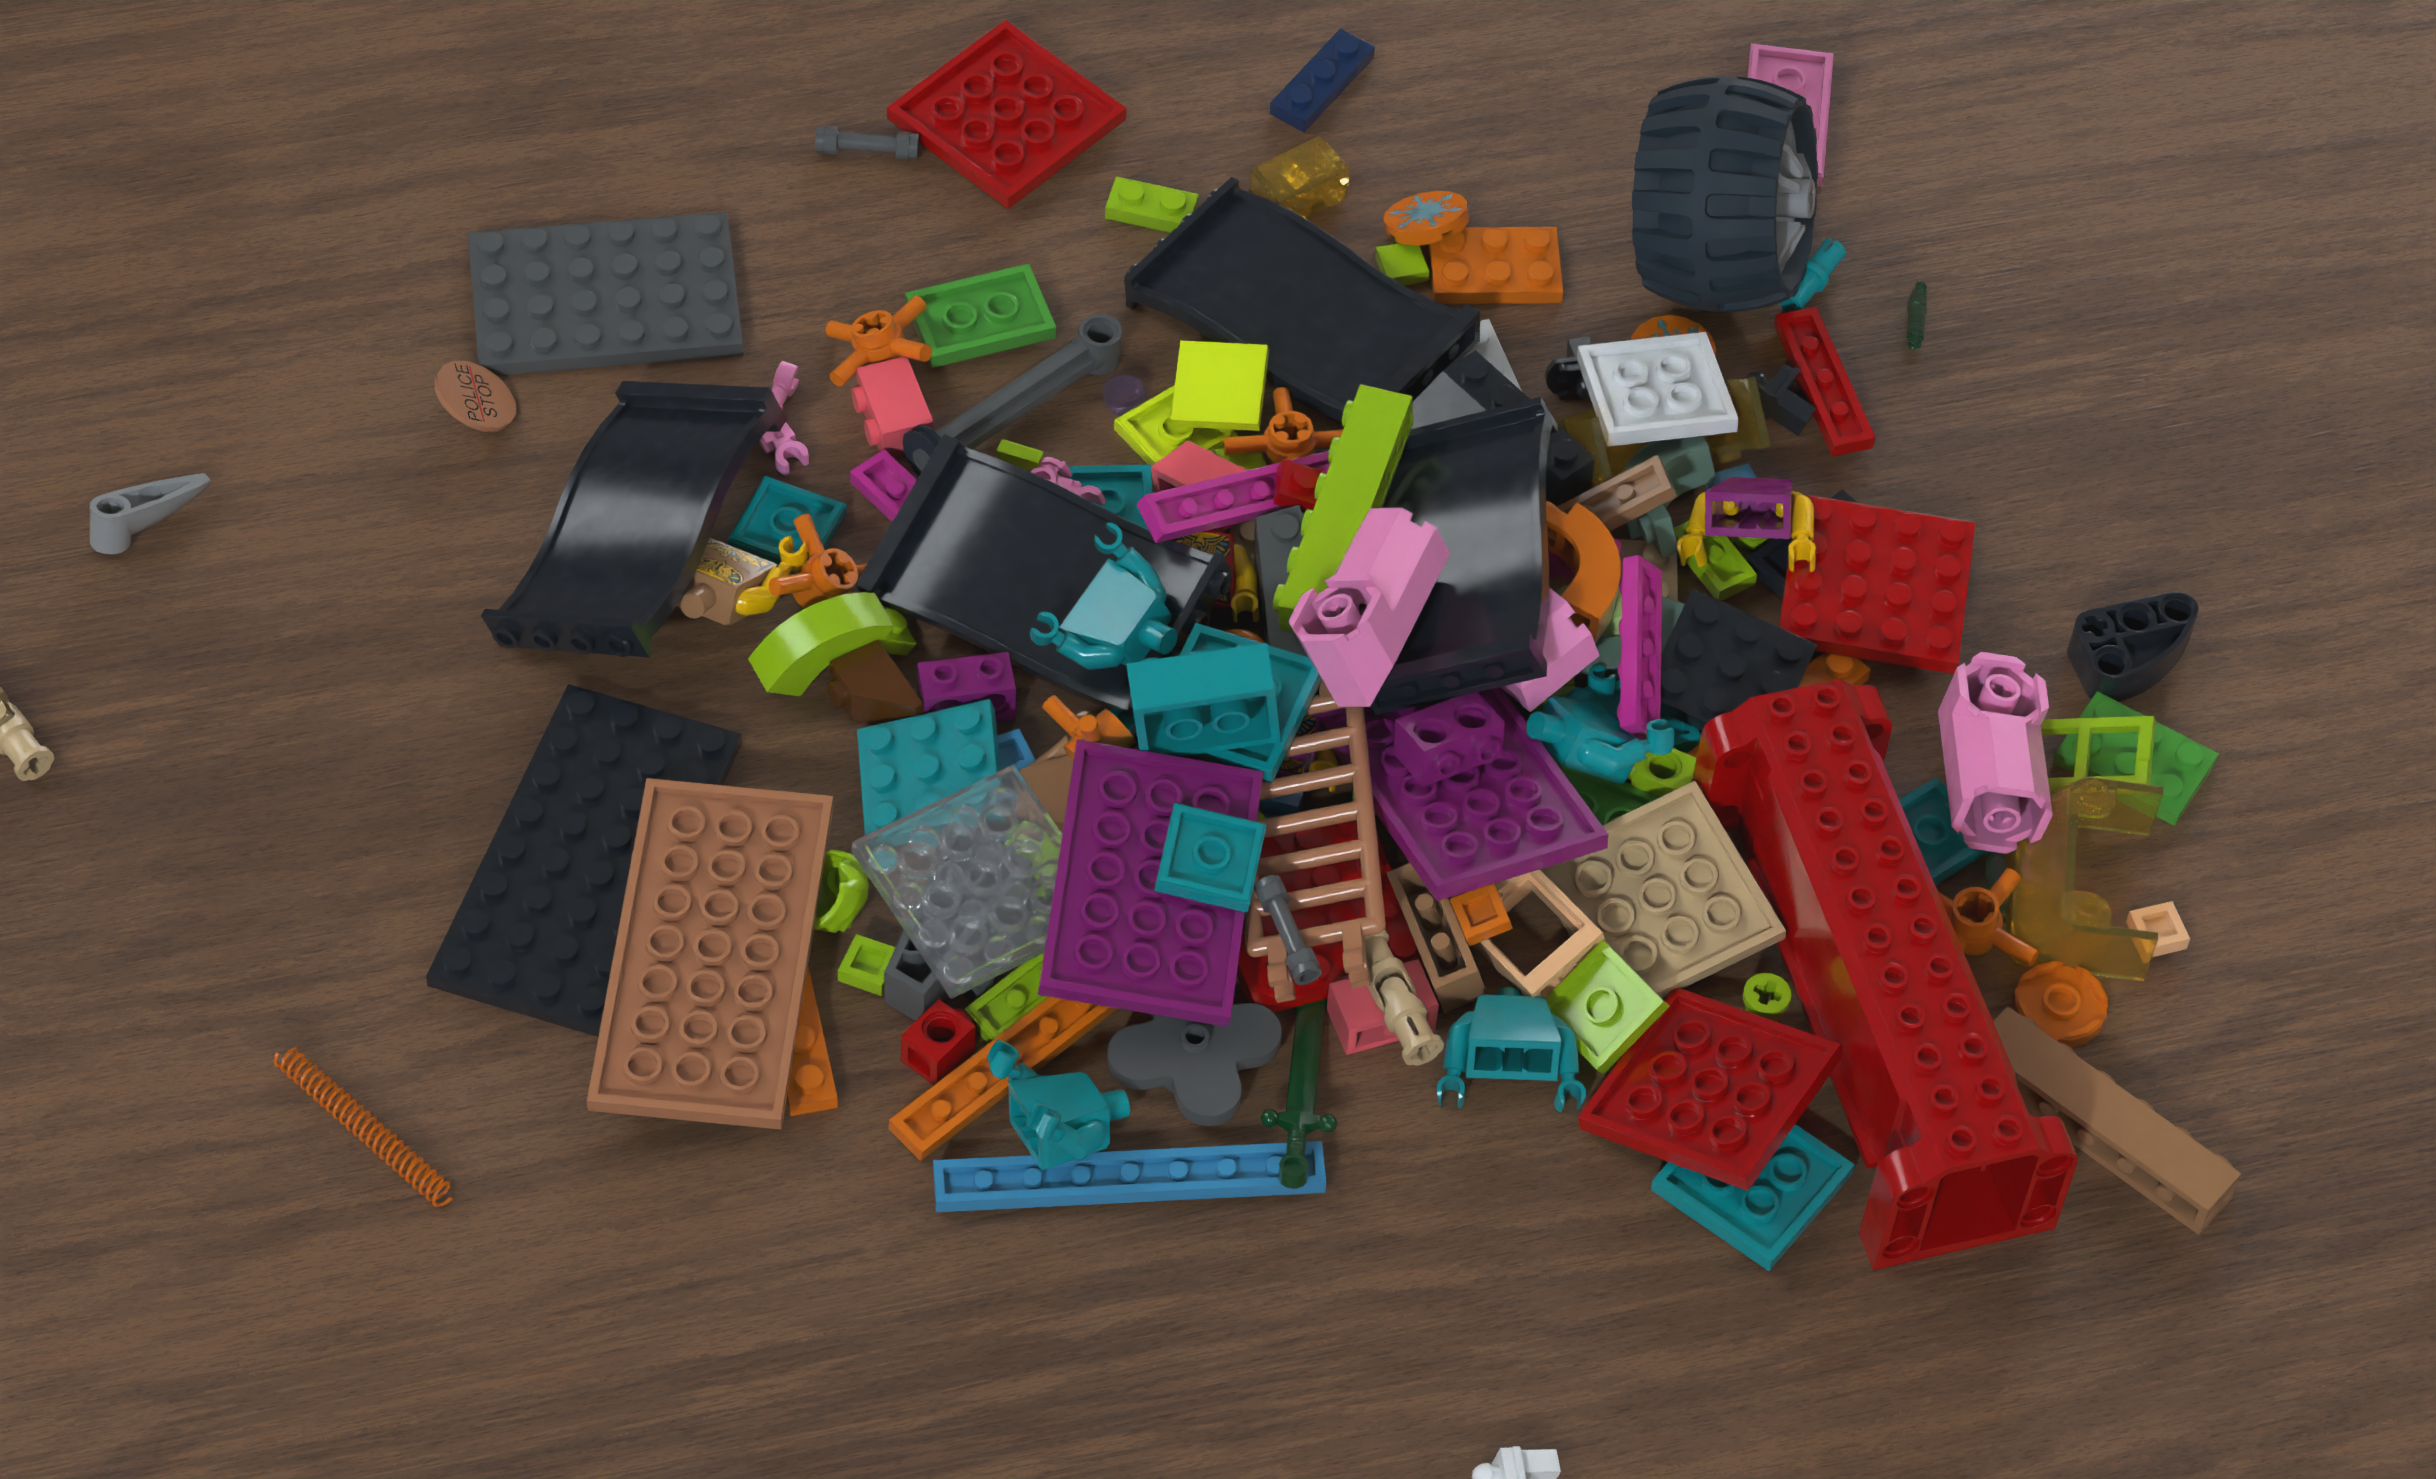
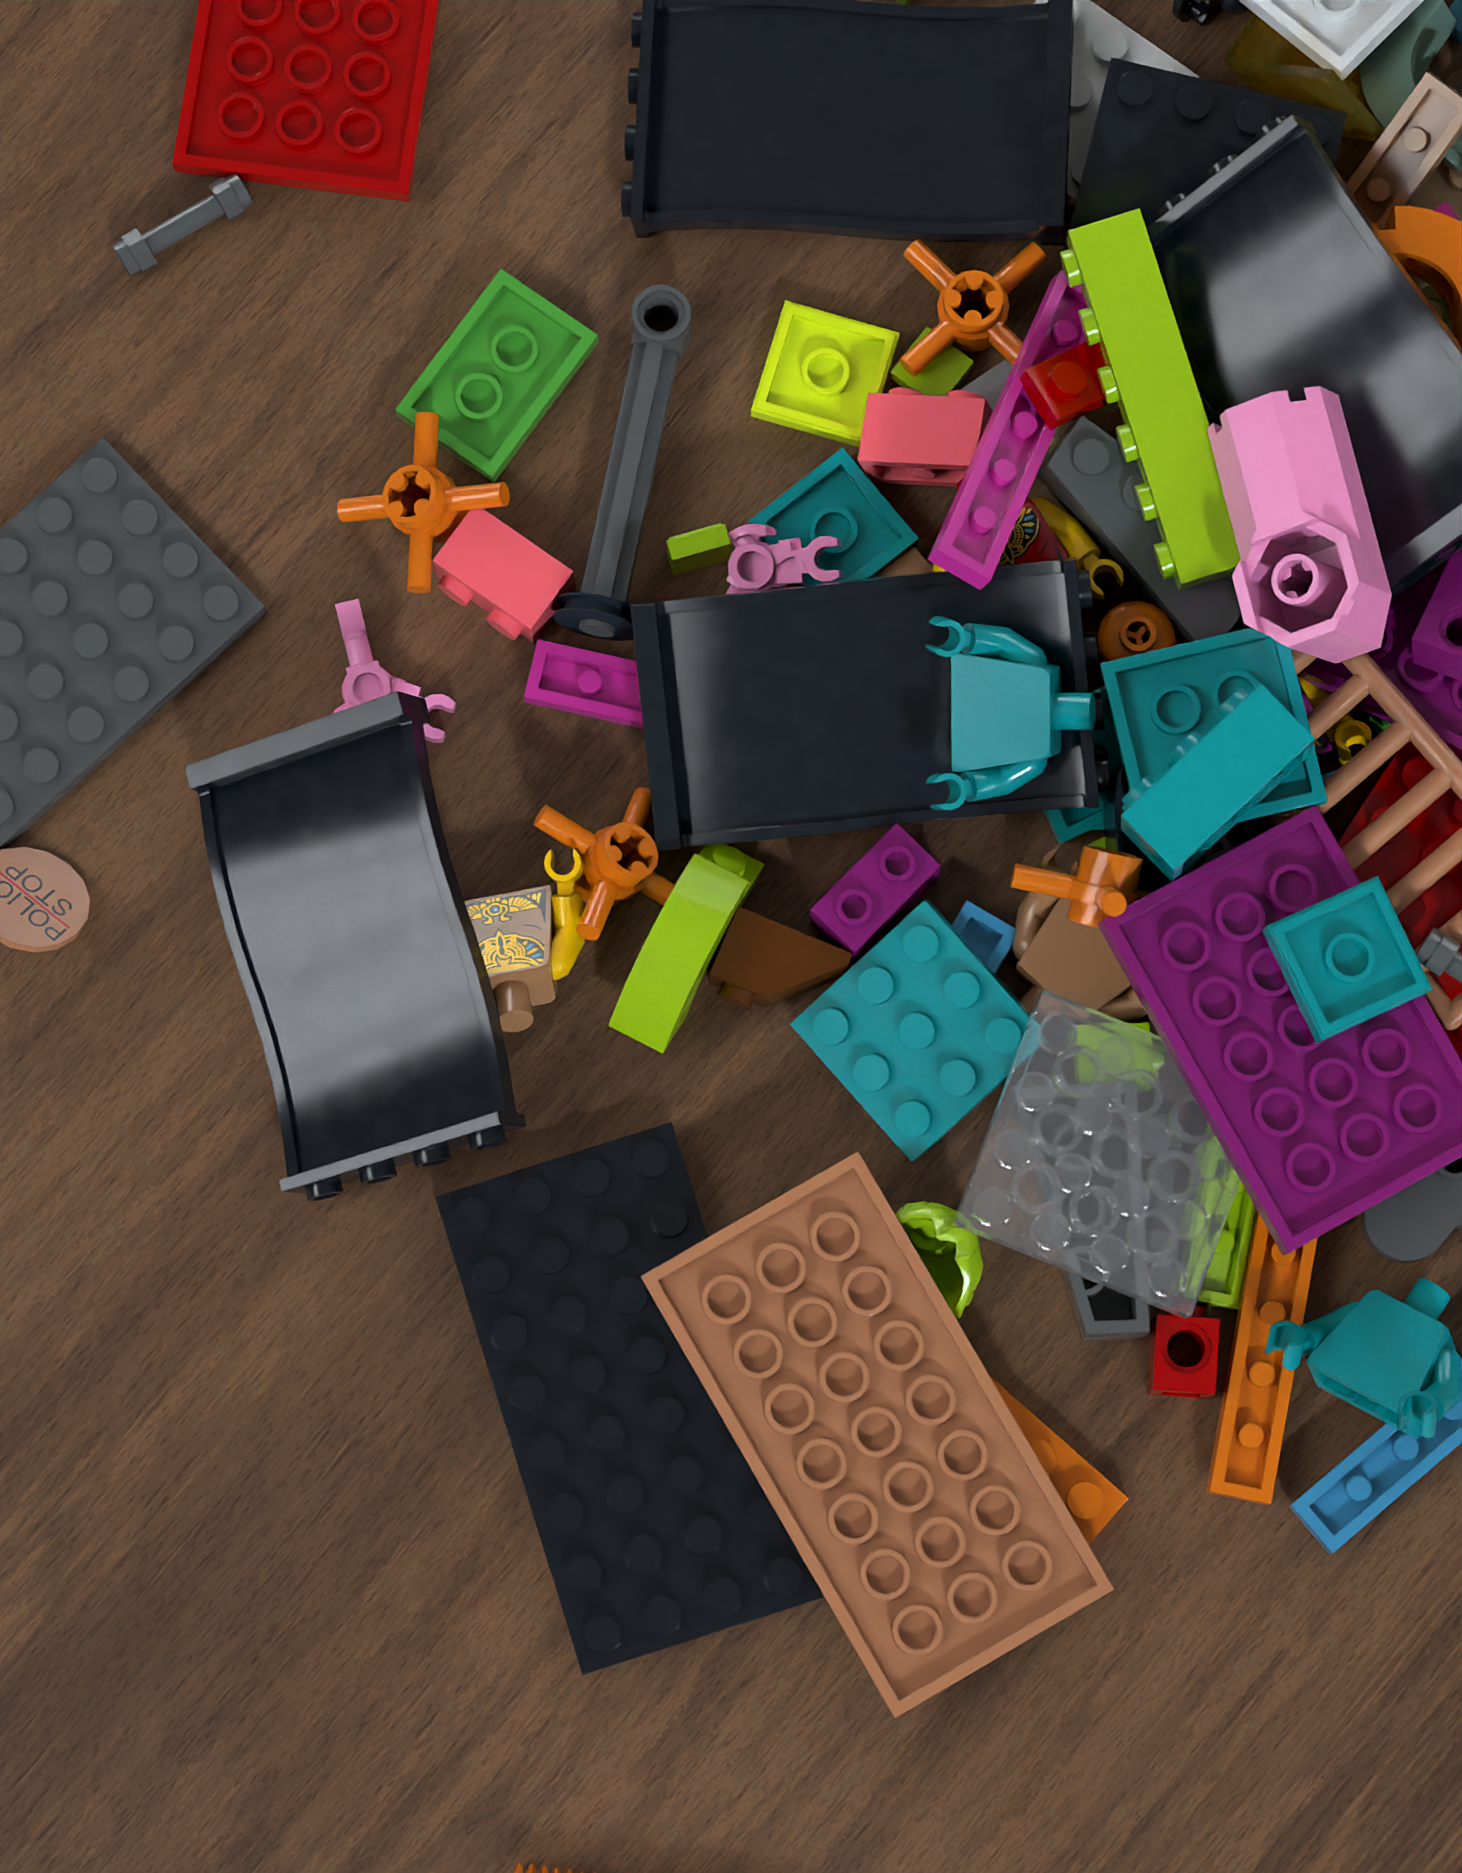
camera: 30 degrees left, 25 degrees up
(771, 518) = (491, 808): teal tile -> none
(865, 964) = (1034, 1311): lime plate -> none
(1124, 393) = (734, 365): clear purple plate -> none
(1149, 204) = (565, 81): lime plate -> none
(1219, 385) = (847, 292): neon yellow tile -> none

